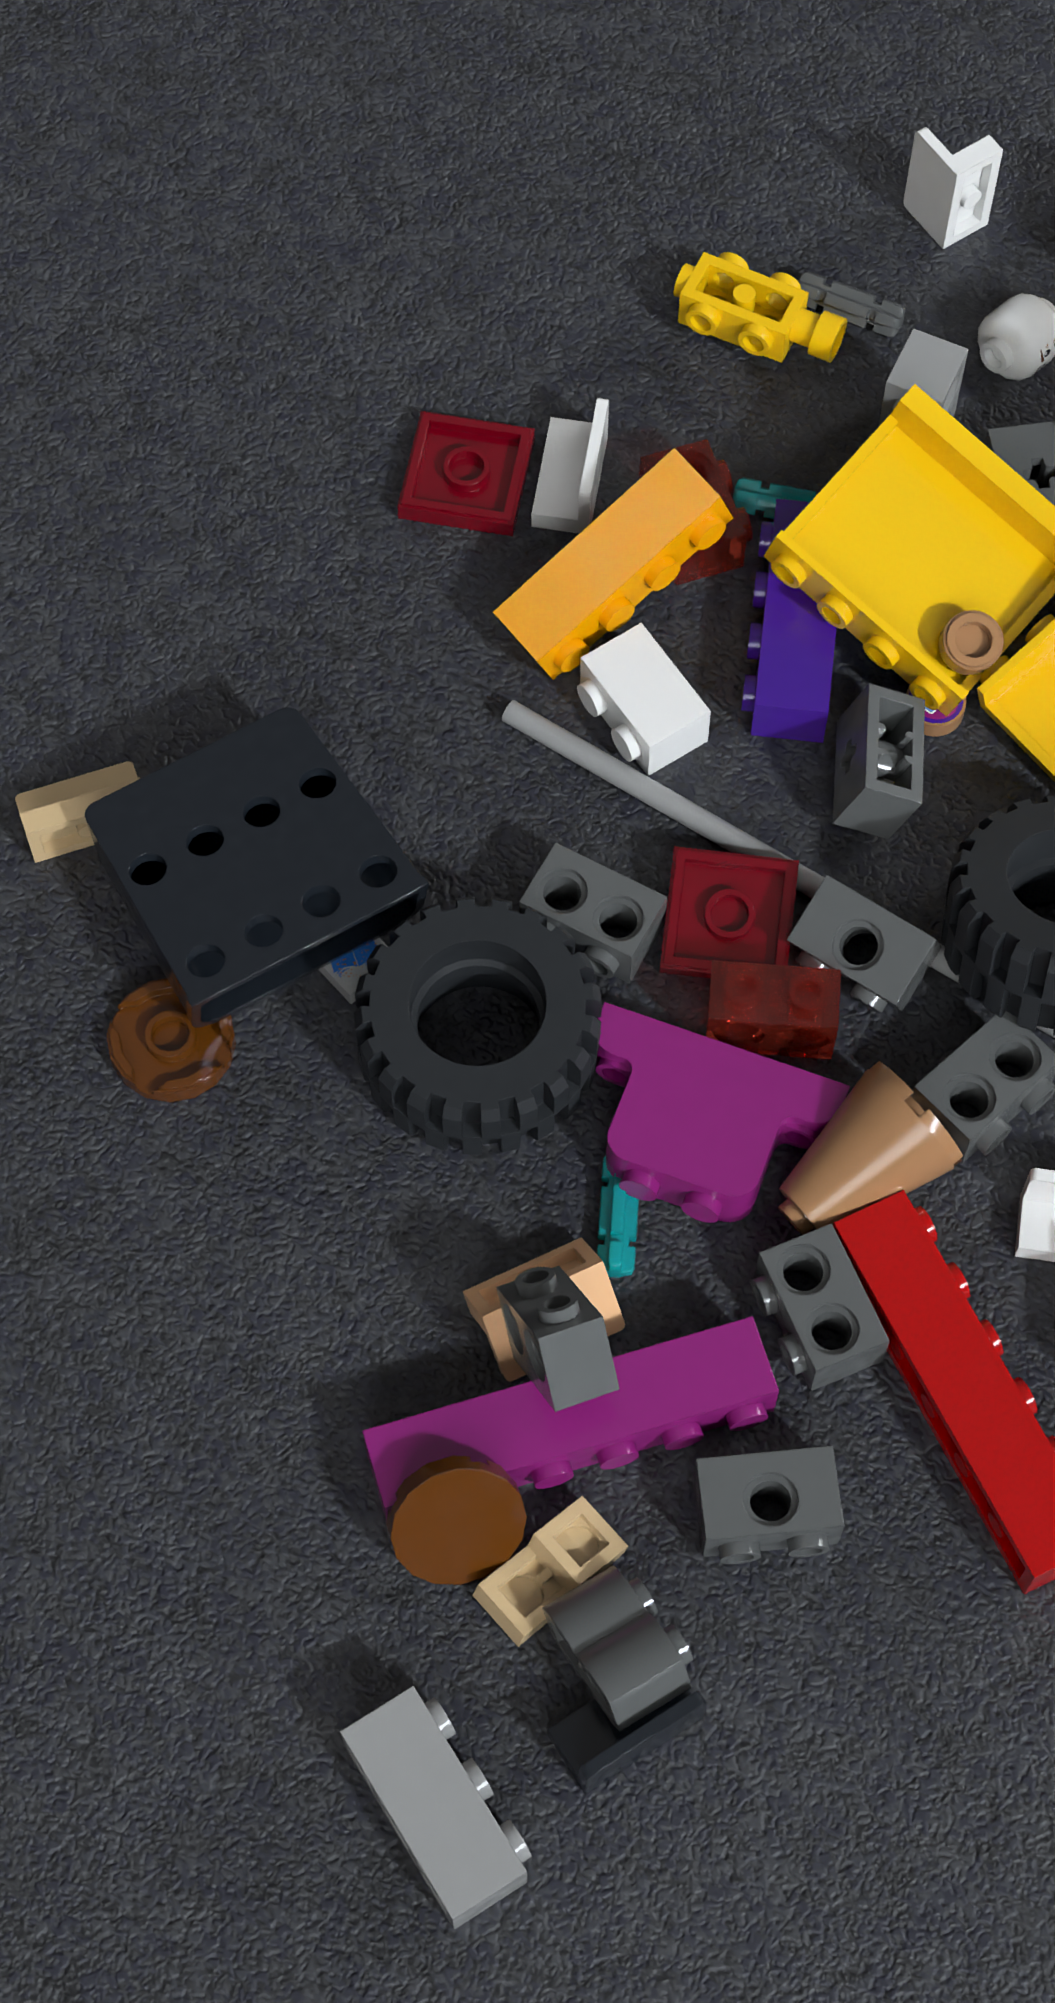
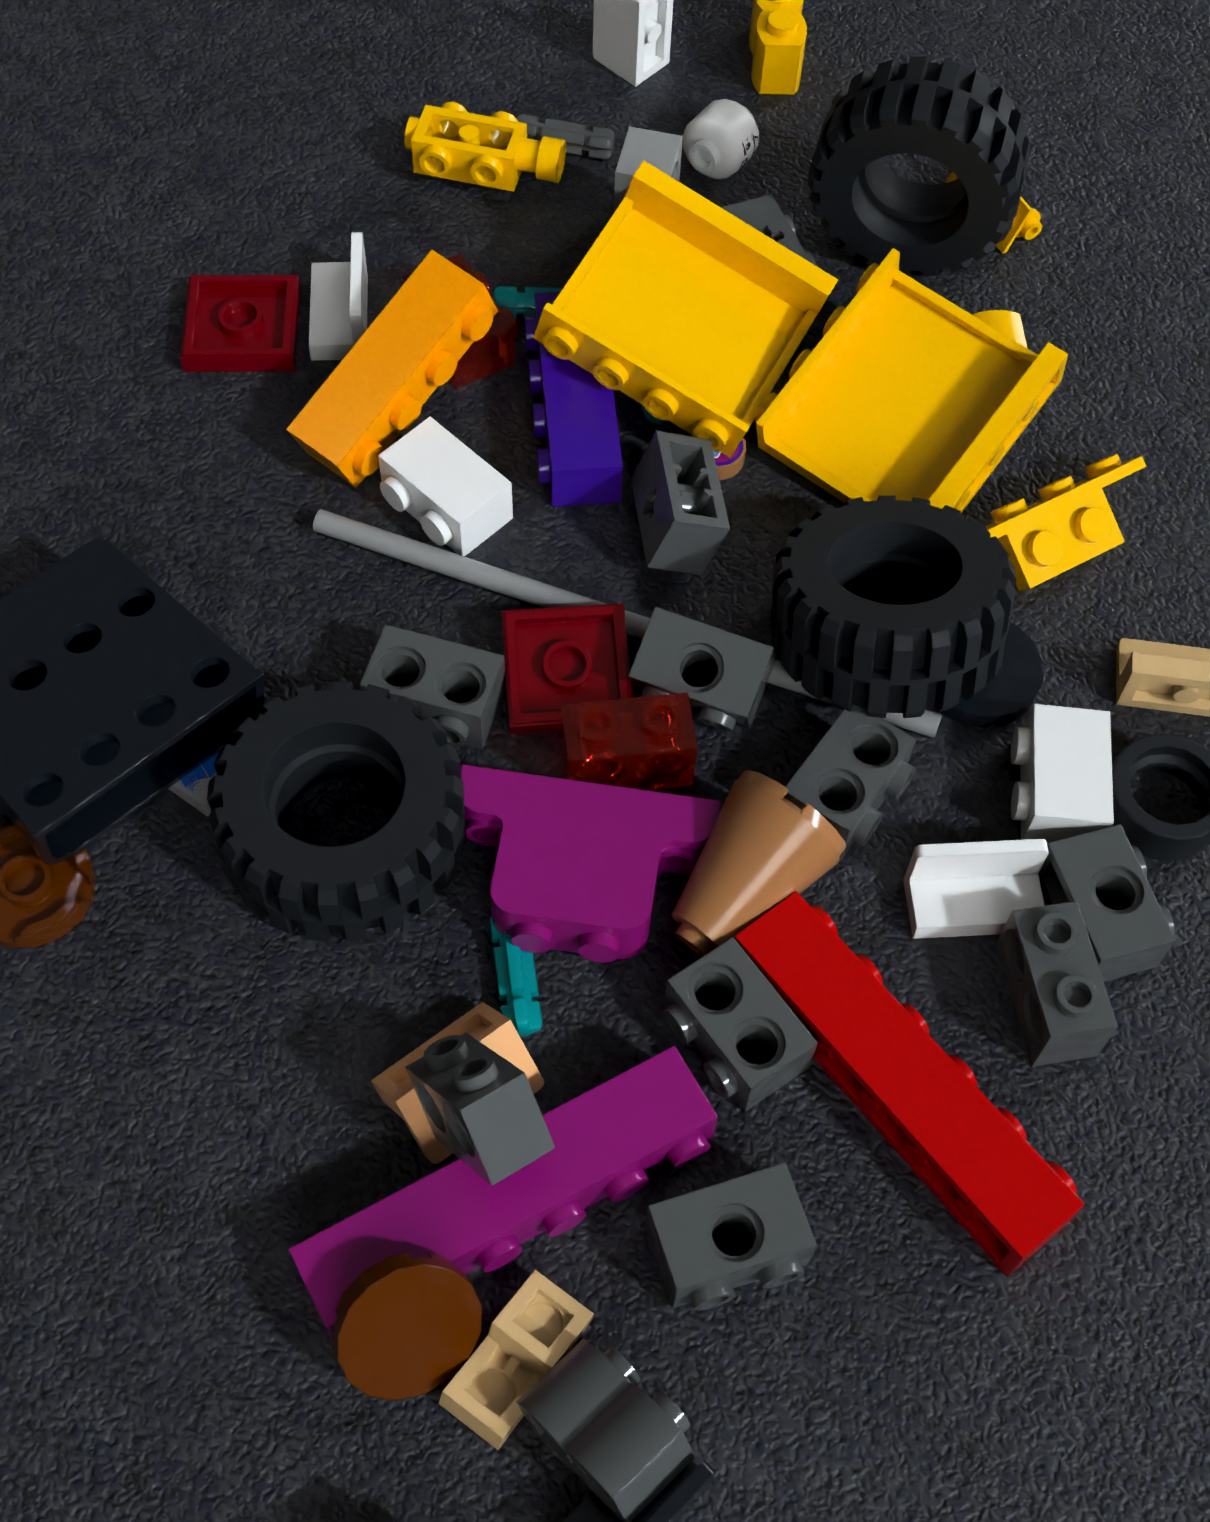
camera: 15 degrees left, 5 degrees down
(970, 642) = (740, 384): medium nougat tile -> none

